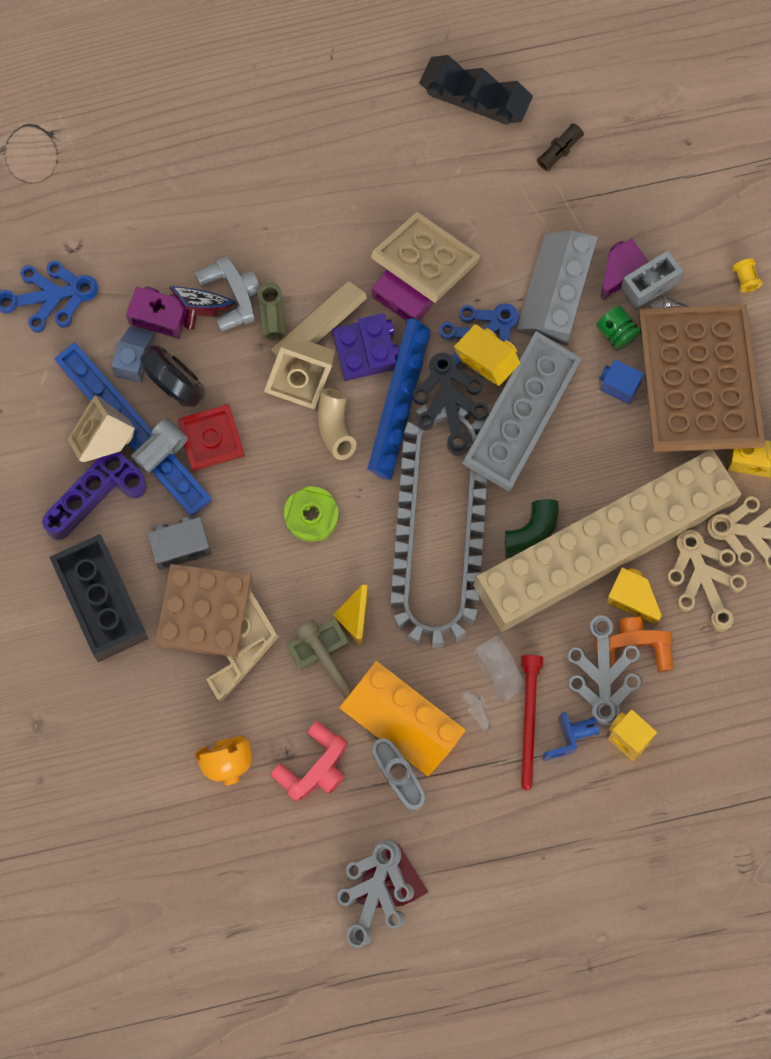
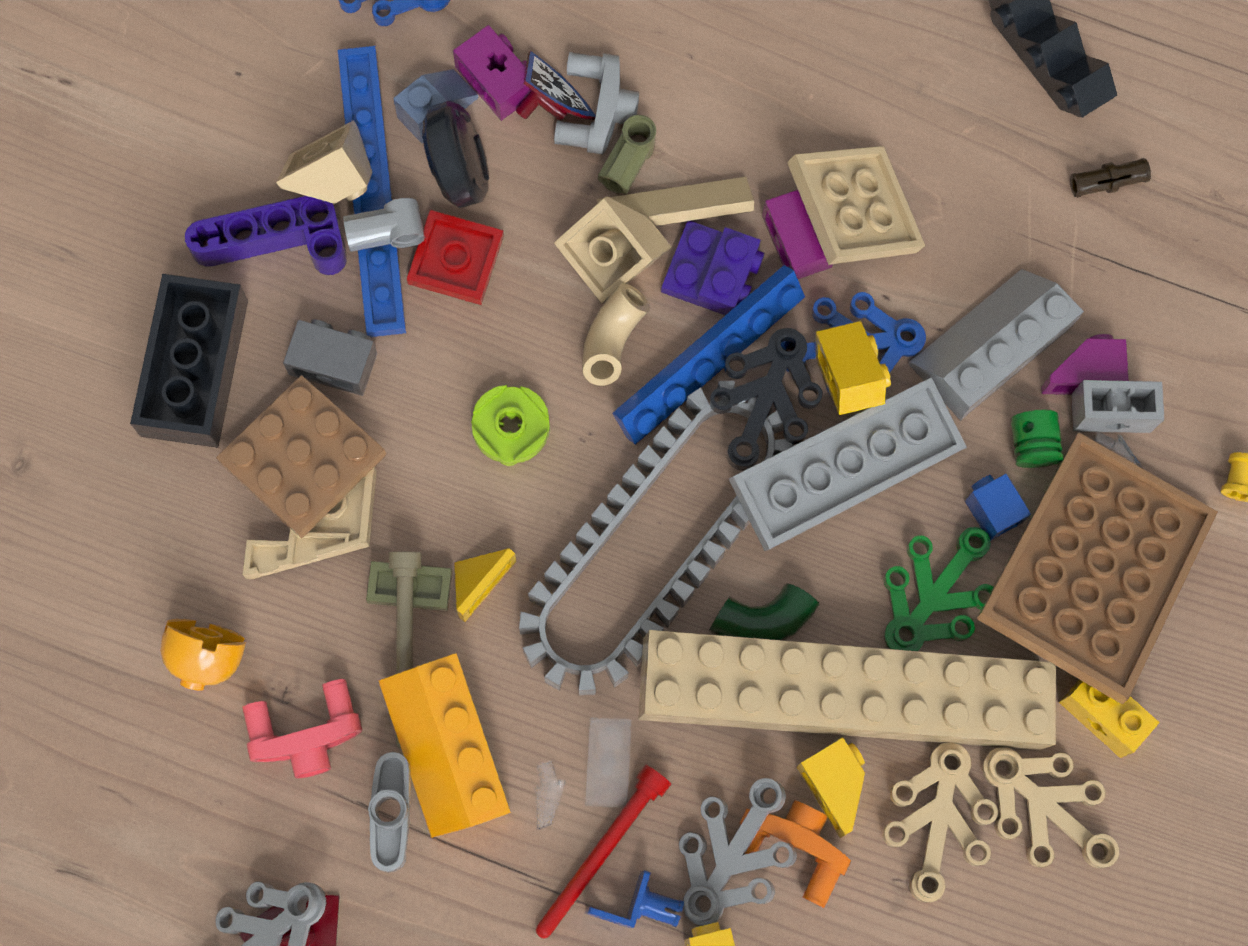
camera: 25 degrees right, 0 degrees up
(619, 455) = (934, 596): none -> green plant

